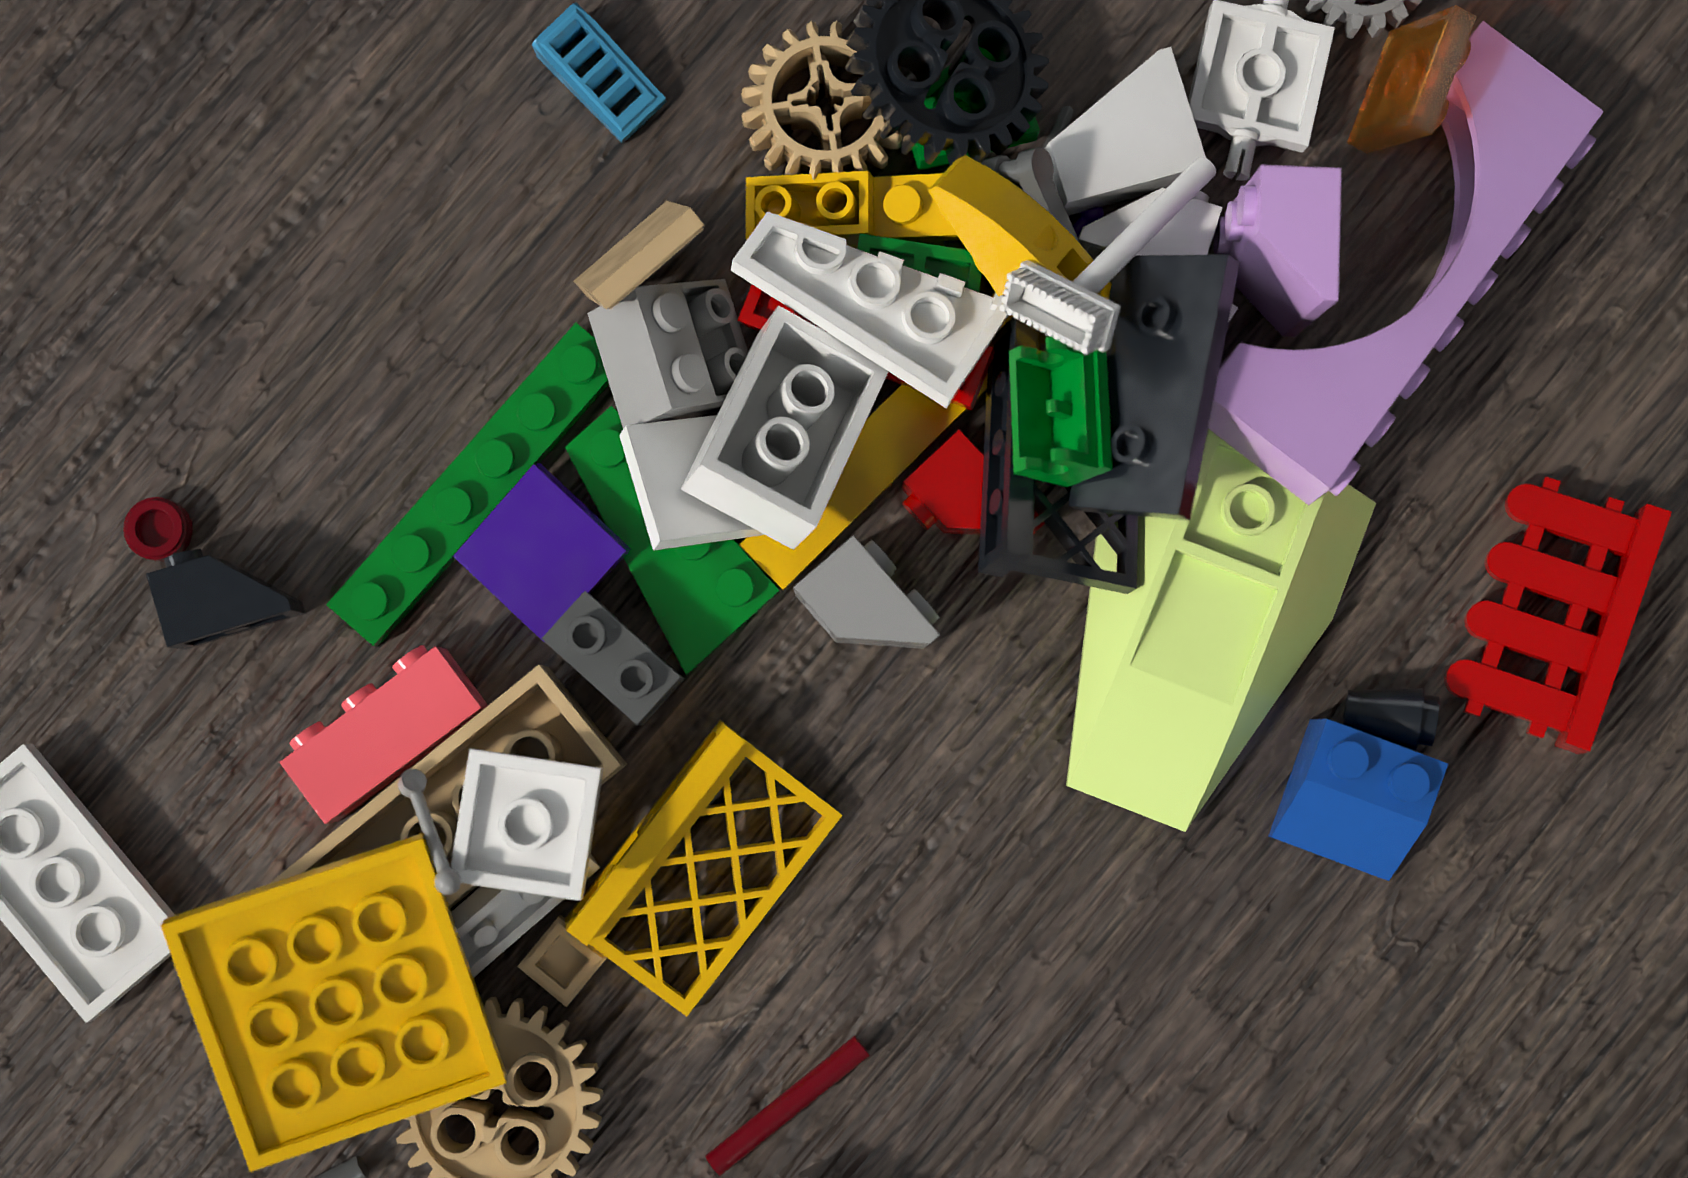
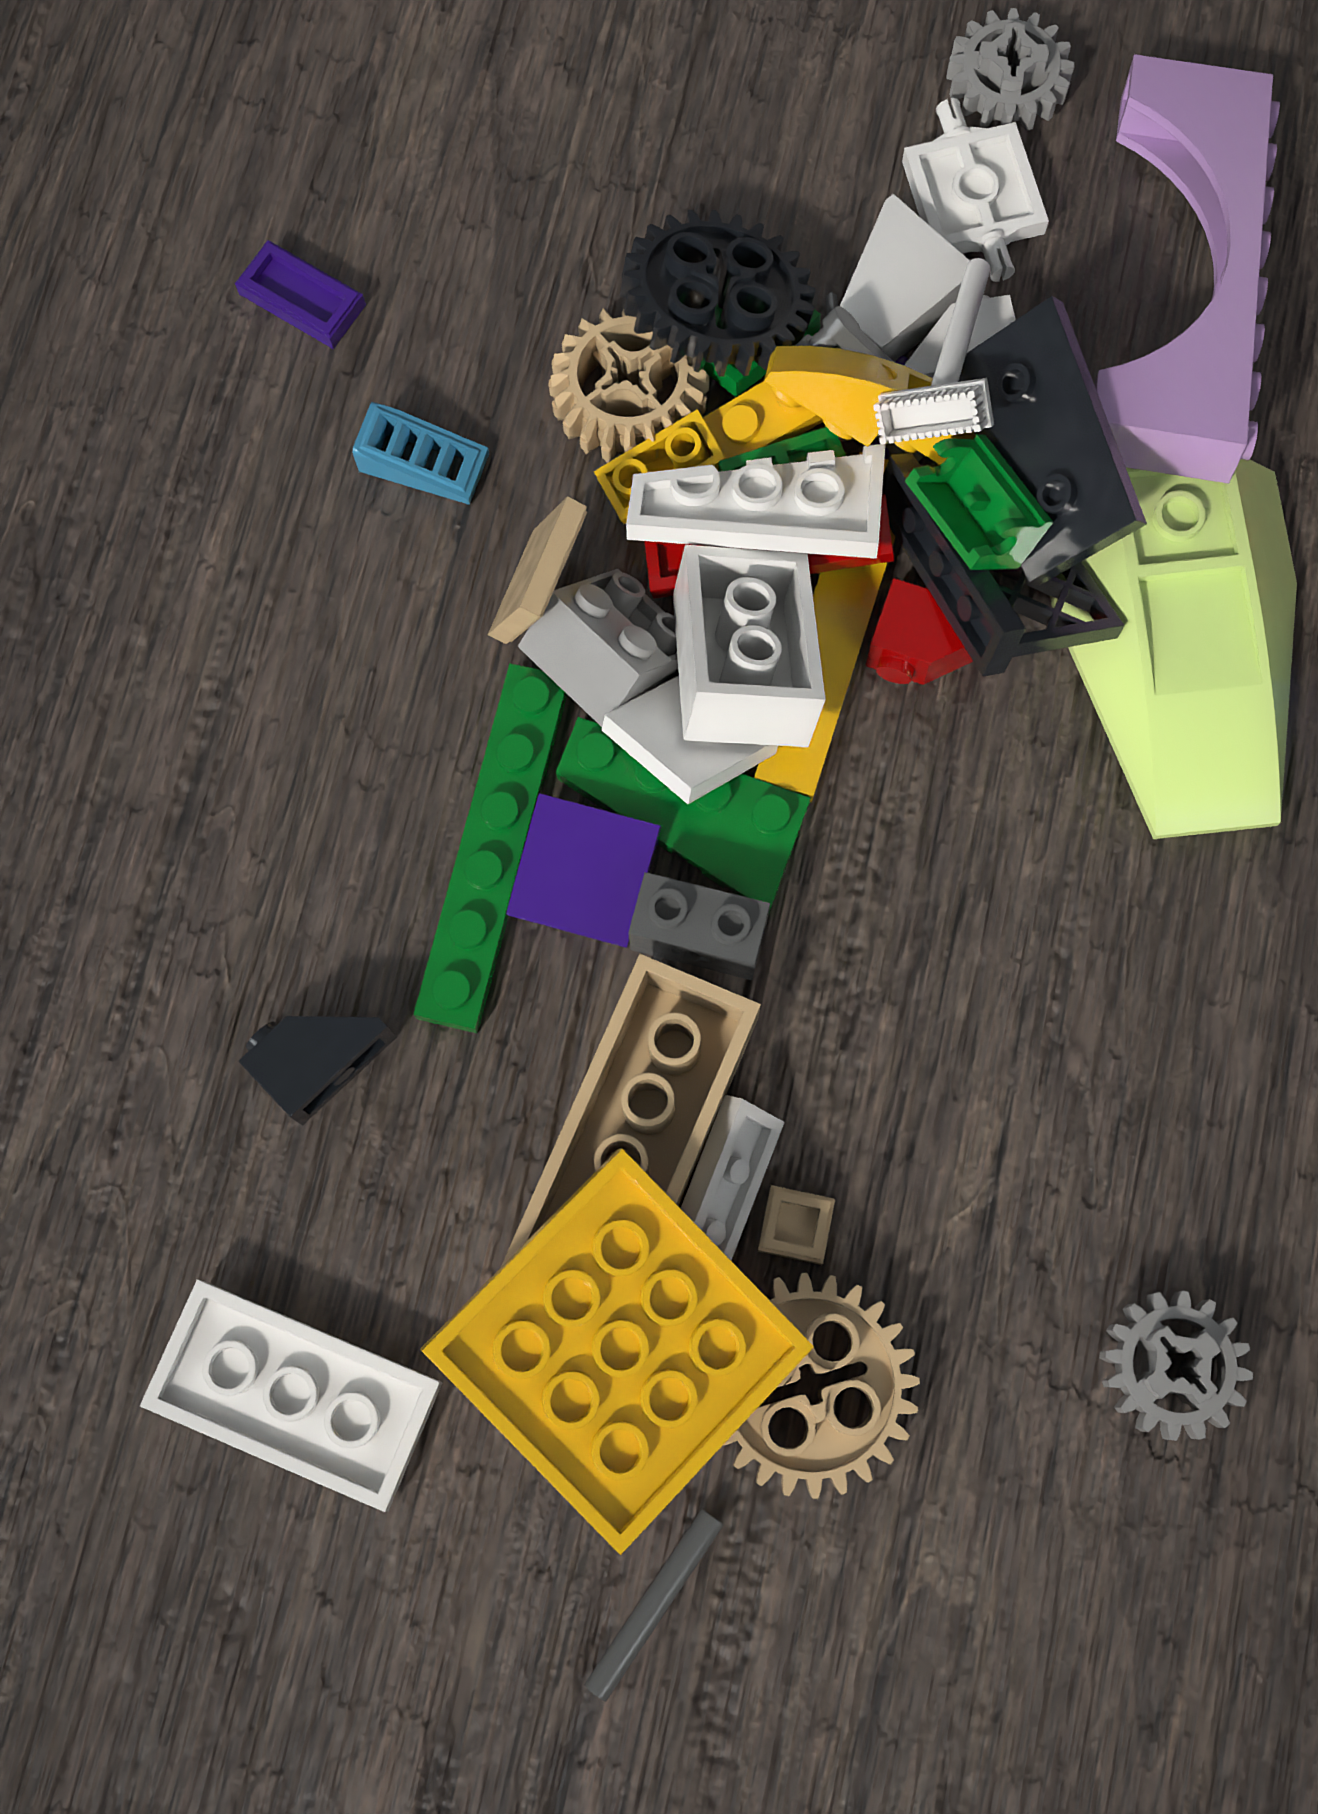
camera: 15 degrees left, 10 degrees down
(157, 528) = (224, 1028): dark red tile -> none
(382, 732) = (524, 1098): coral brick -> none
(412, 785) = (583, 1115): light grey hinge -> none
(526, 824) = (707, 1093): white plate -> none
(658, 836) = (821, 1067): yellow fence -> none
(787, 1105) = (1071, 1250): dark red bar -> none
(862, 604) = (898, 759): light grey slope -> none
(1286, 243) = (1099, 272): lavender slope -> none
(1413, 80) = (1105, 124): clear orange plate -> none

